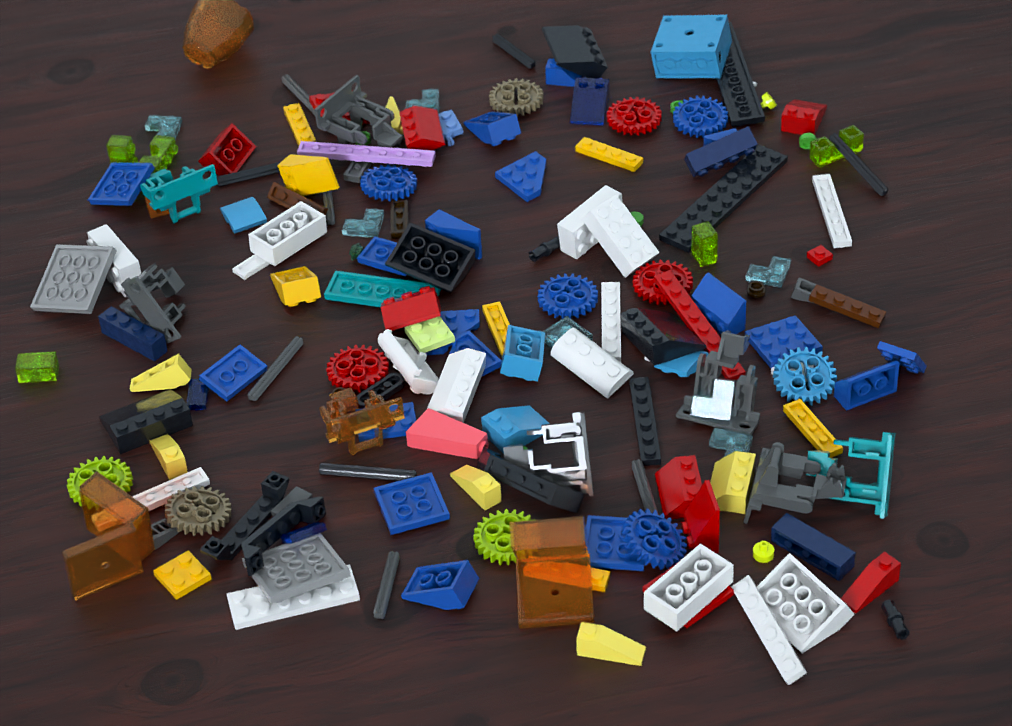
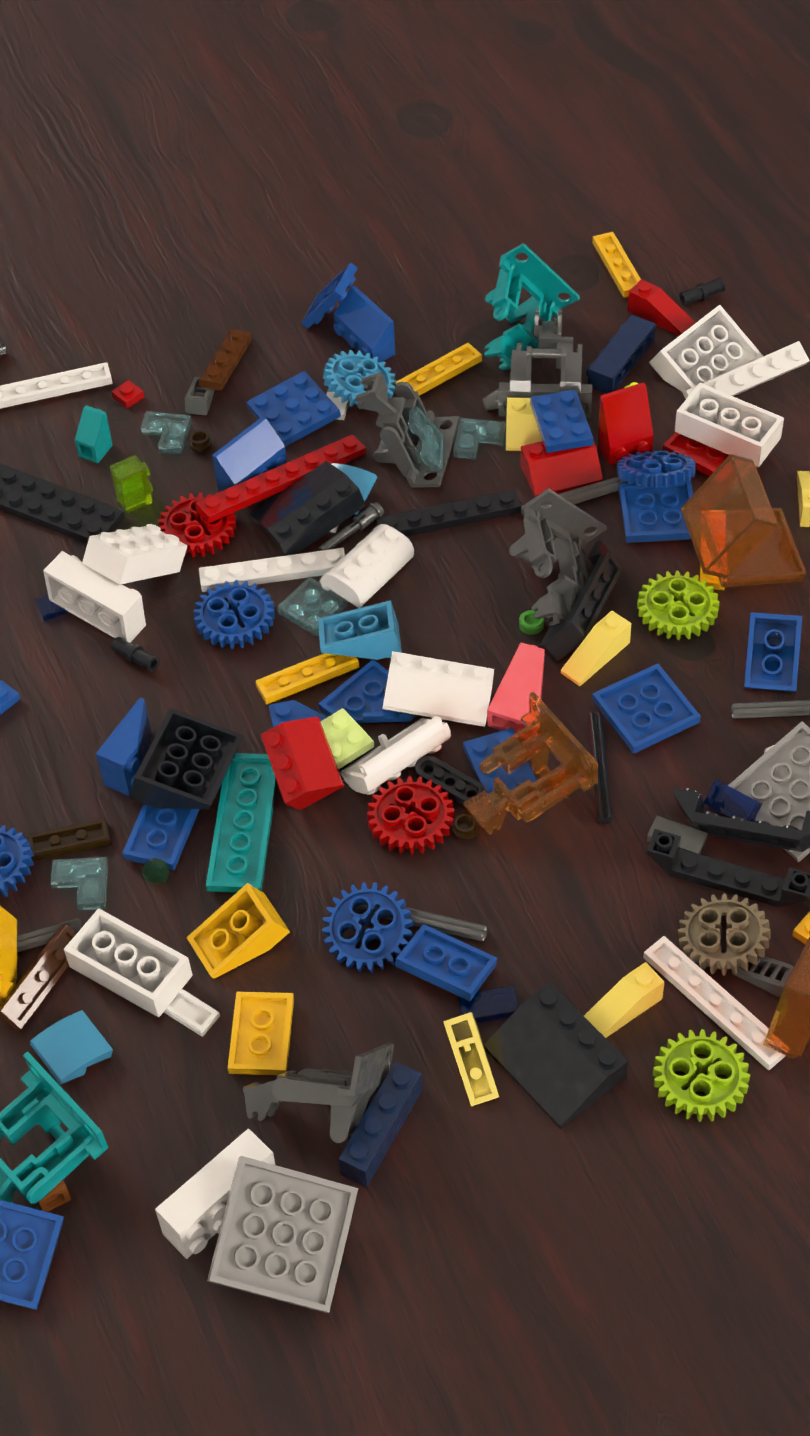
camera: 100 degrees left, 10 degrees up
(37, 367) = (477, 1245): clear neon green brick -> none
(219, 291) = (261, 1033): none -> yellow plate
(274, 337) = (344, 918): none -> blue gear
(510, 425) = (491, 629): dark azure slope -> none
(655, 376) = (359, 523): none -> dark grey pin
(723, 473) = (561, 421): none -> blue plate
(764, 230) = (93, 435): none -> teal slope
(943, 564) = (616, 262): none -> yellow plate

